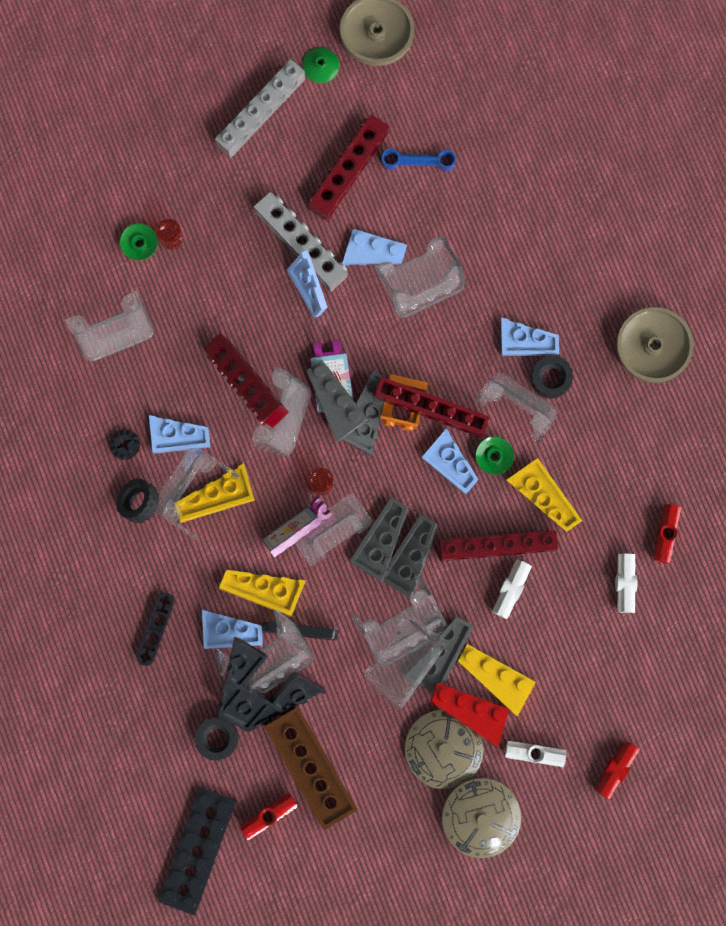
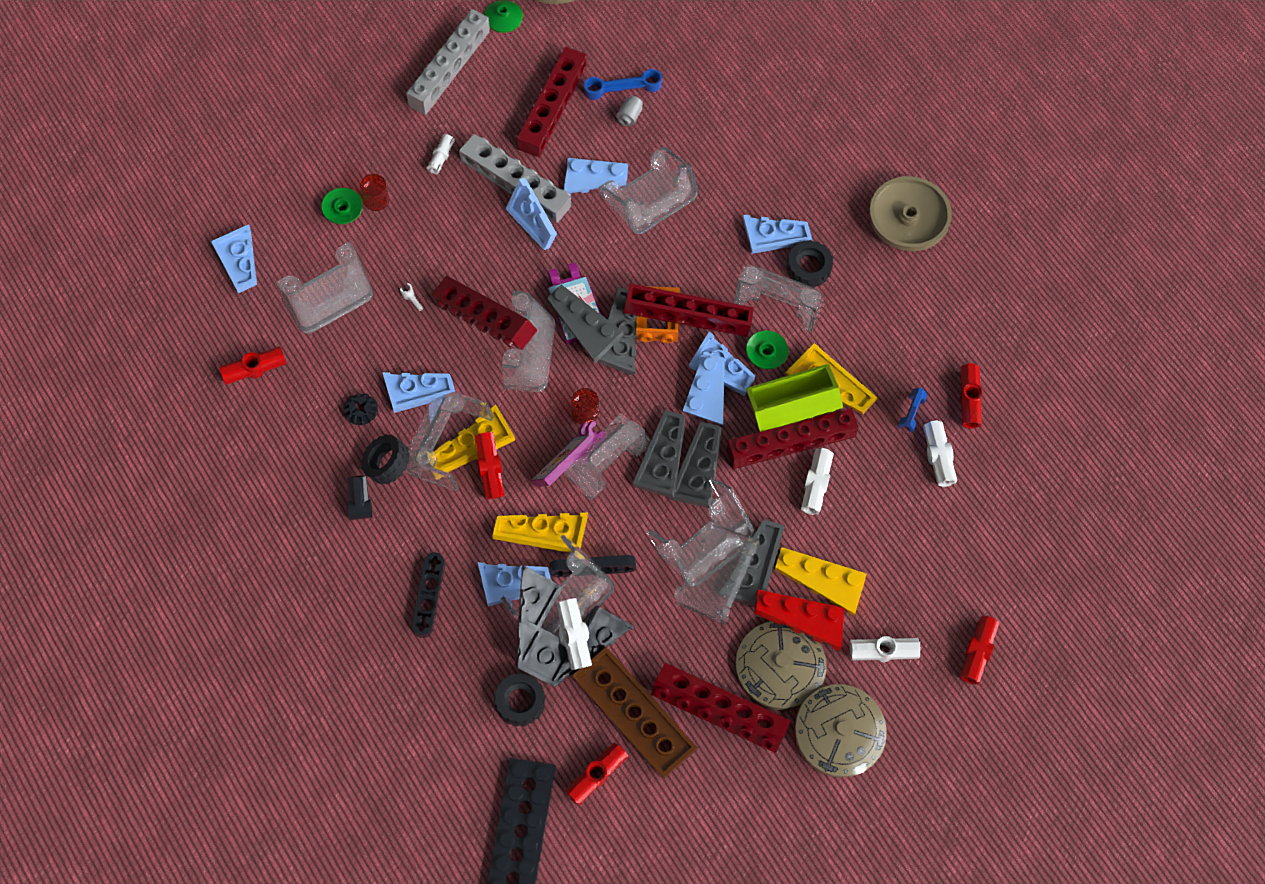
camera: 10 degrees left, 15 degrees down
(23, 388) = (240, 369): none -> red piece
(38, 276) = (238, 257): none -> light blue wing
(109, 536) = (359, 503): none -> black piece
(186, 342) = (409, 295): none -> white hand
(227, 523) = (489, 465): none -> red piece
(237, 203) = (440, 154): none -> white pin
(270, 696) = (573, 634): none -> white piece
(393, 780) = (720, 707): none -> dark red brick
(419, 190) = (629, 111): none -> light grey brick
(432, 486) = (707, 390): none -> light blue wing
(507, 511) = (794, 397): none -> lime piece
(606, 547) = (918, 396): none -> blue flag

